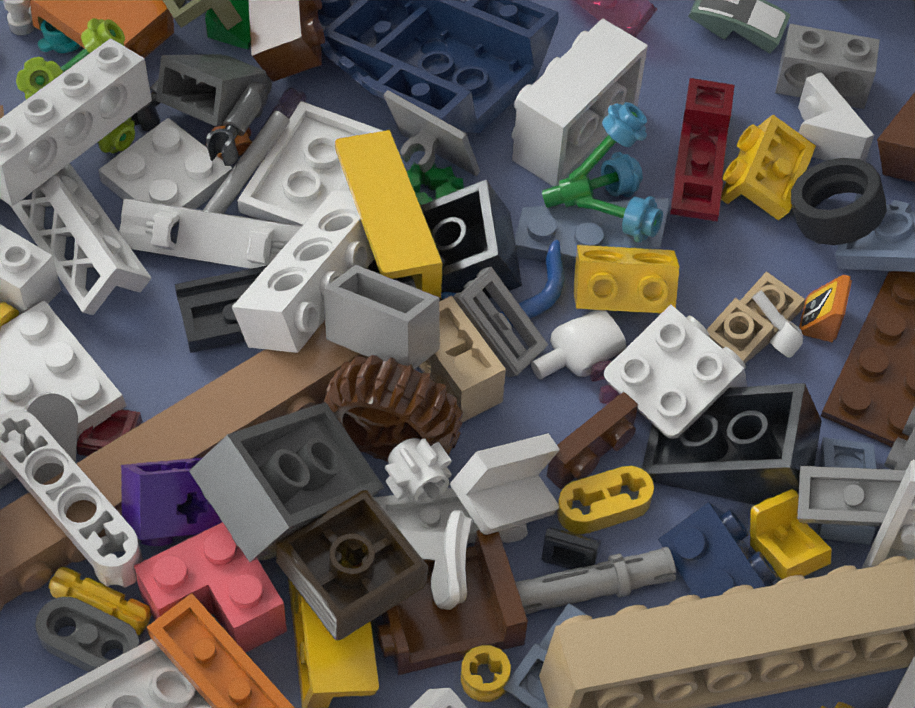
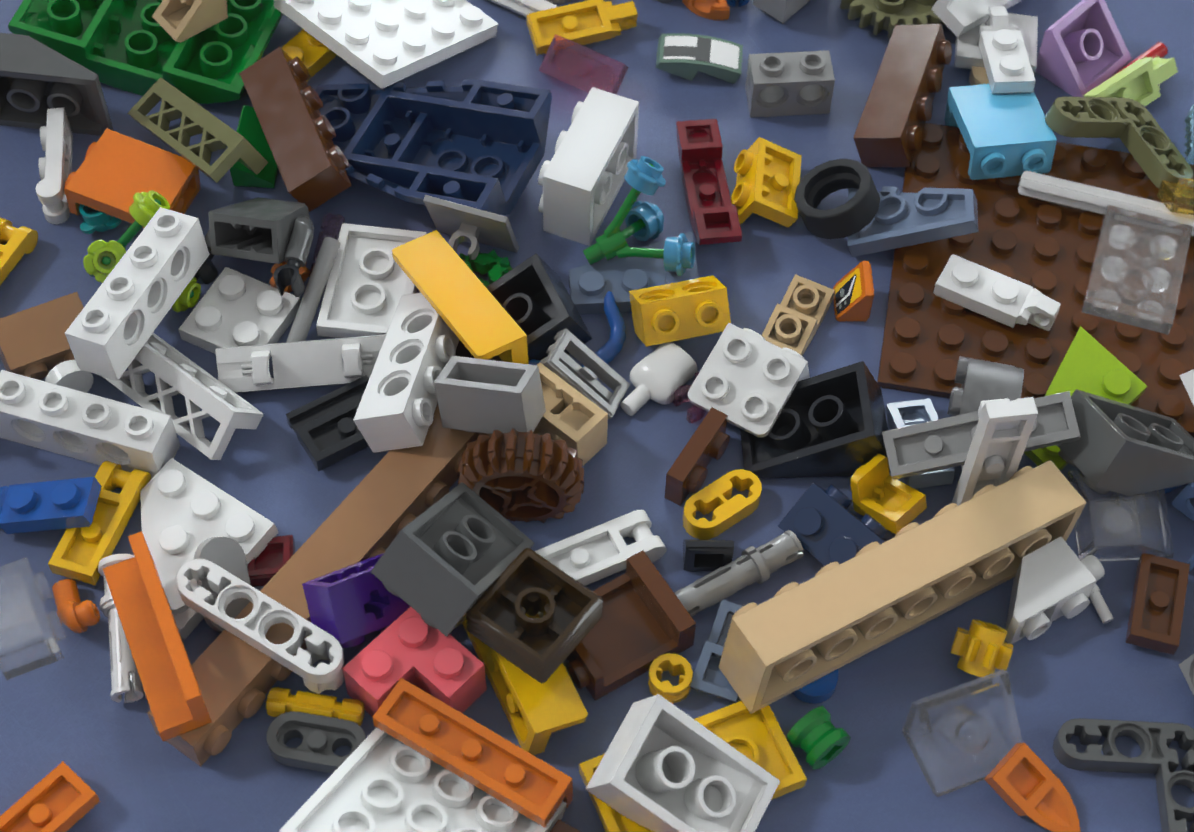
camera: 15 degrees left, 0 degrees up
(418, 471) = (561, 520): white gear -> none
(449, 555) = (613, 585): white piece -> none
(504, 484) = (637, 515): white panel -> none
(789, 336) = (831, 325): white hand -> none
(832, 122) = (809, 131): white slope -> none

